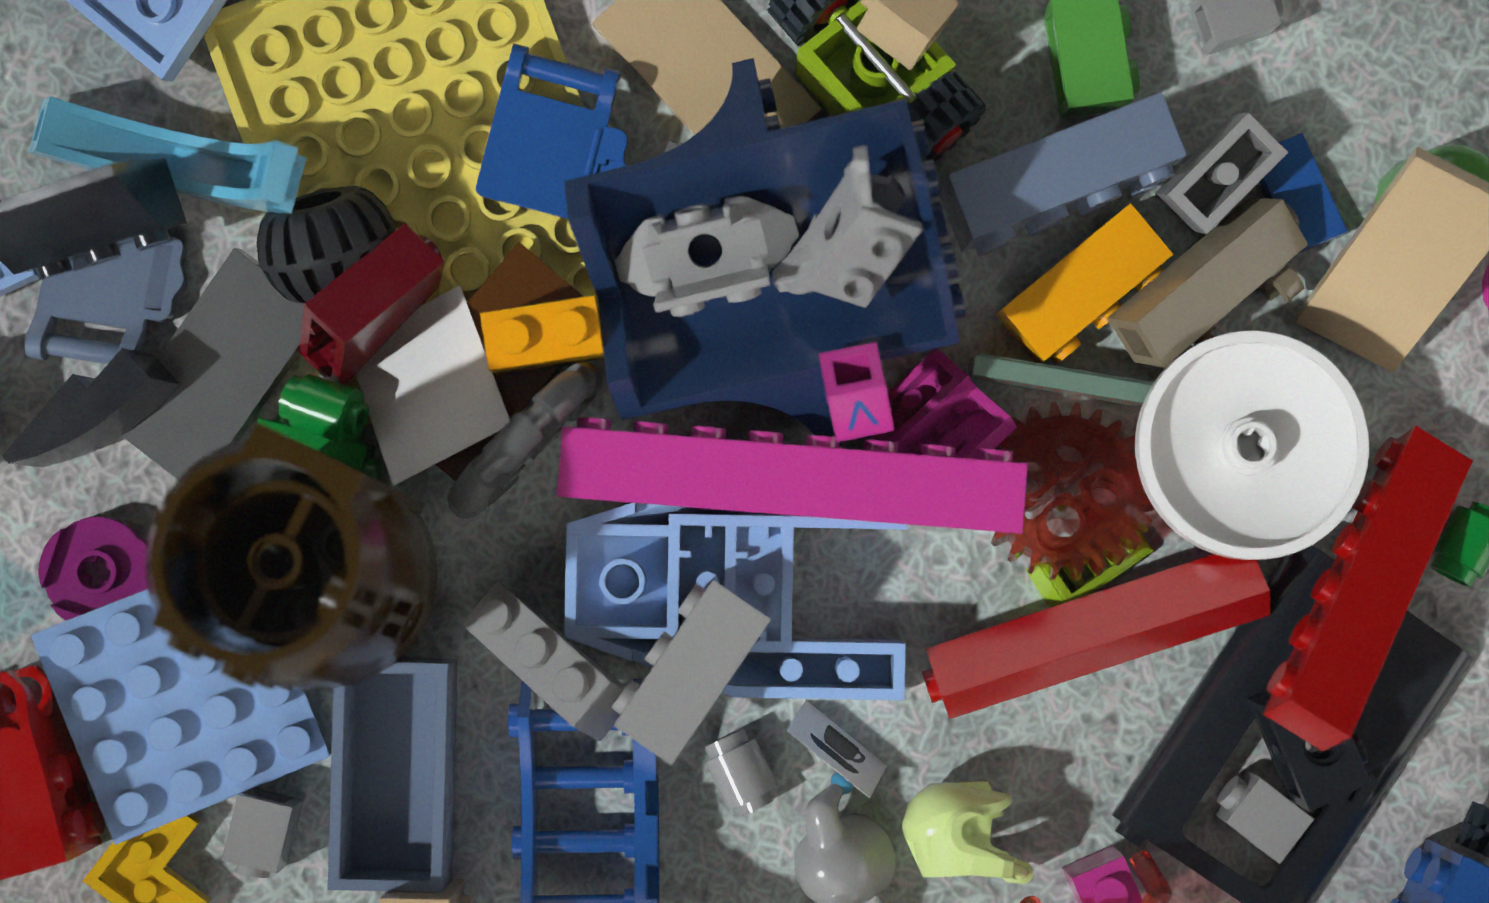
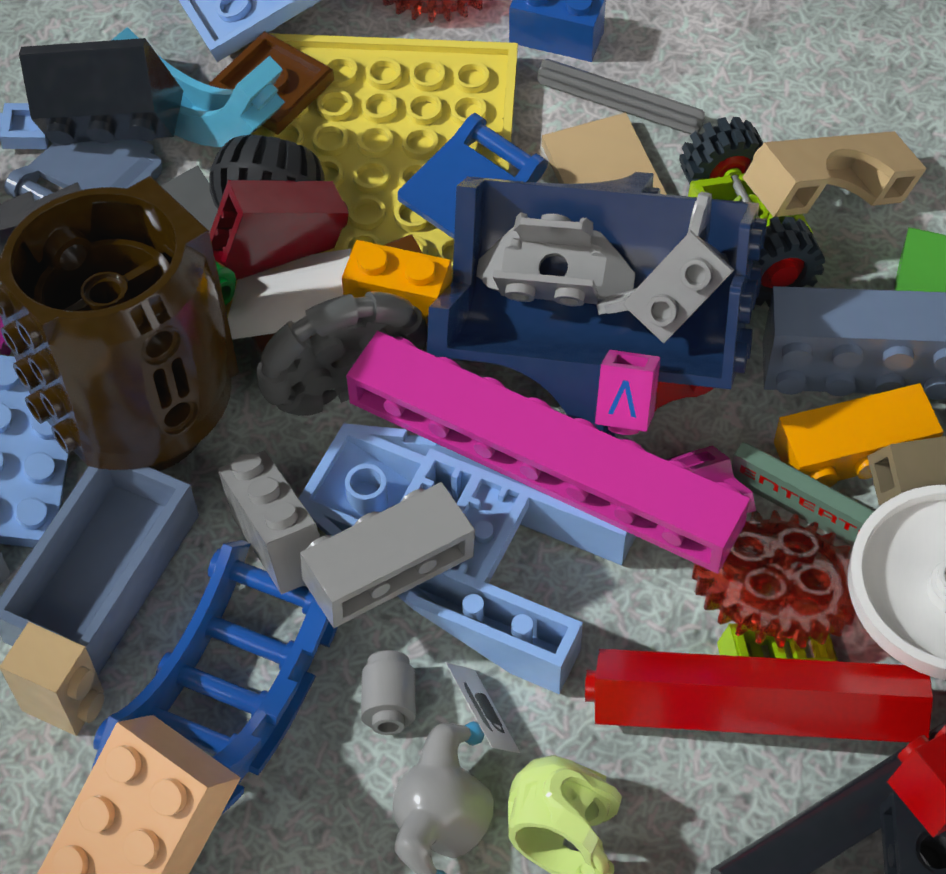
camera: 30 degrees right, 30 degrees down
(252, 87) = (297, 85): none -> reddish brown tile

